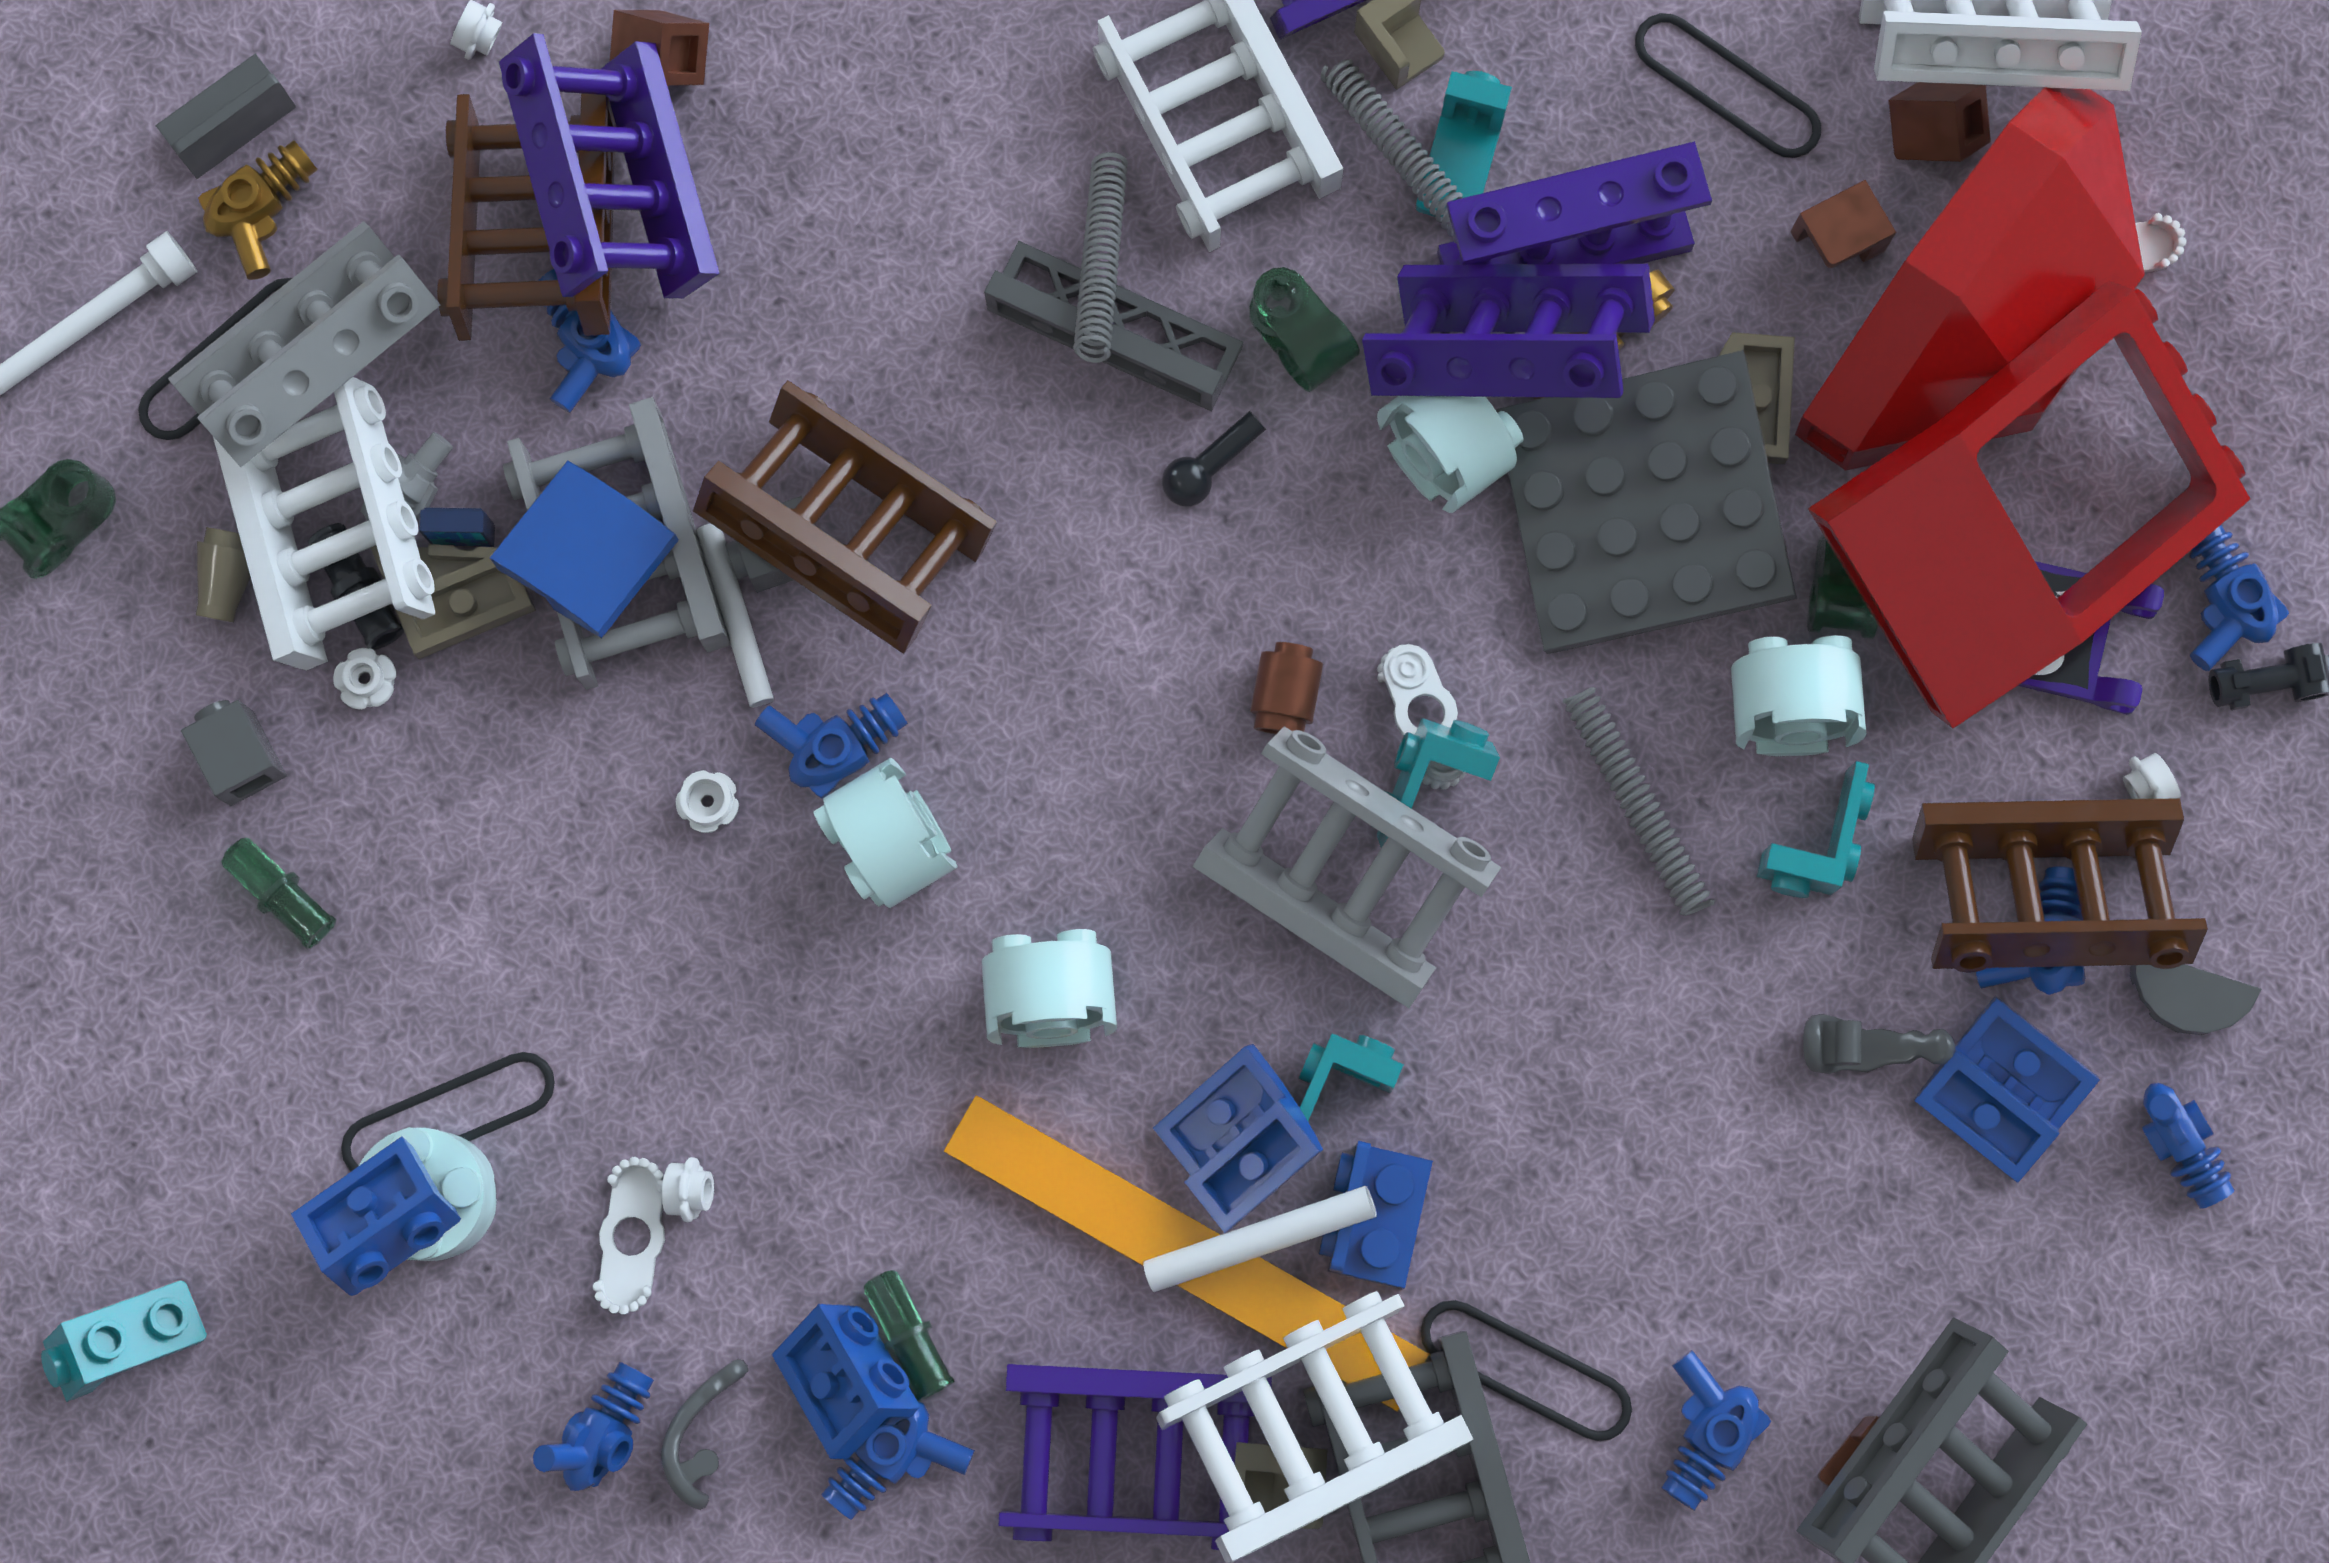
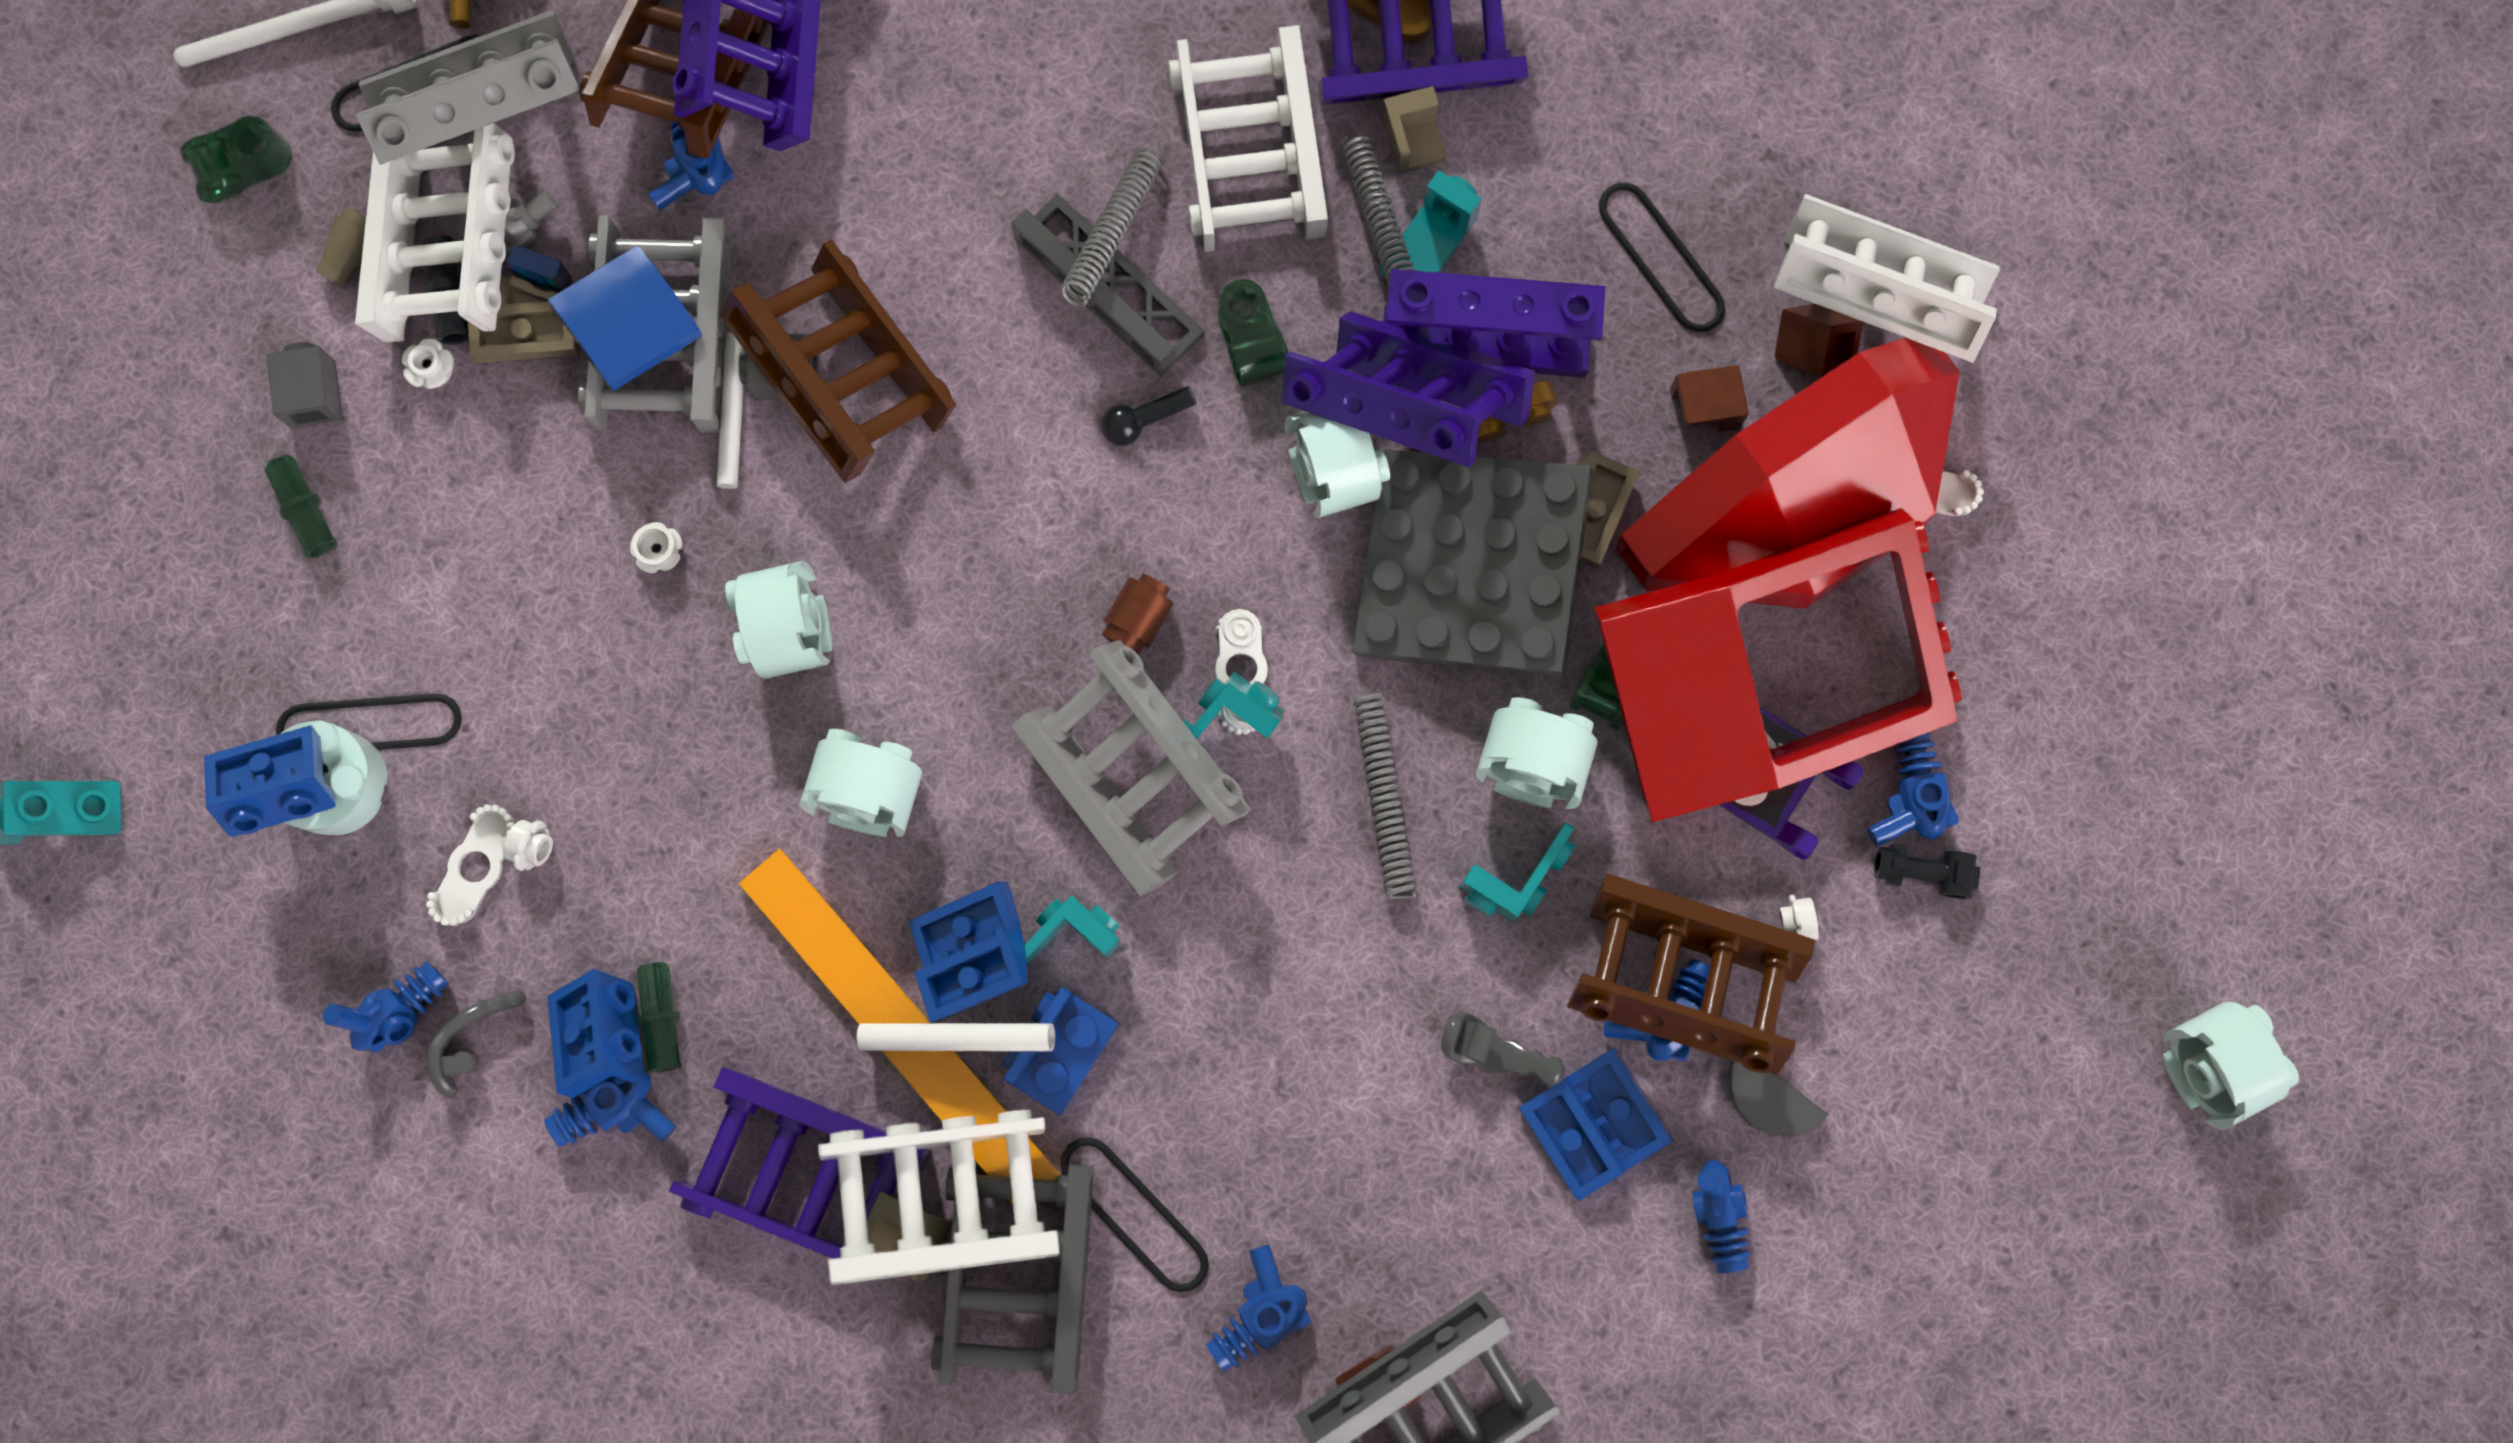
camera: 15 degrees right, 0 degrees up
(831, 749) = (767, 540): blue piece -> none

